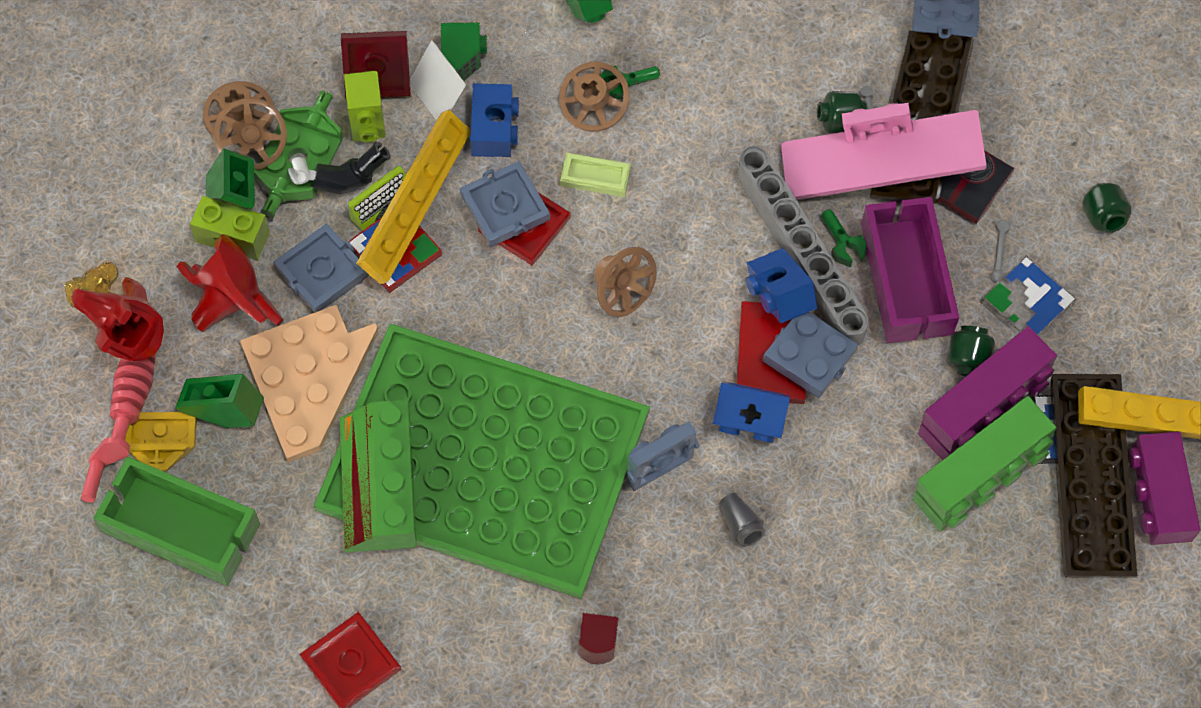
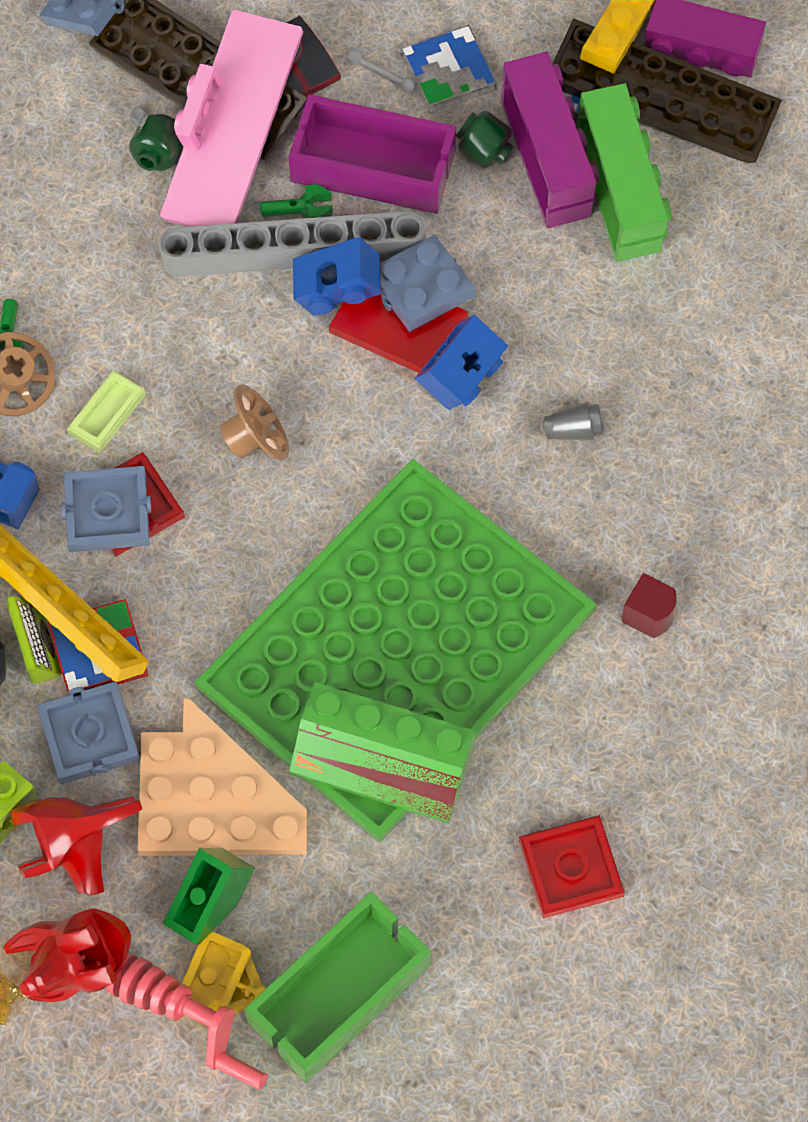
camera: 65 degrees left, 0 degrees up
(662, 455) = (478, 462): sand blue plate -> none

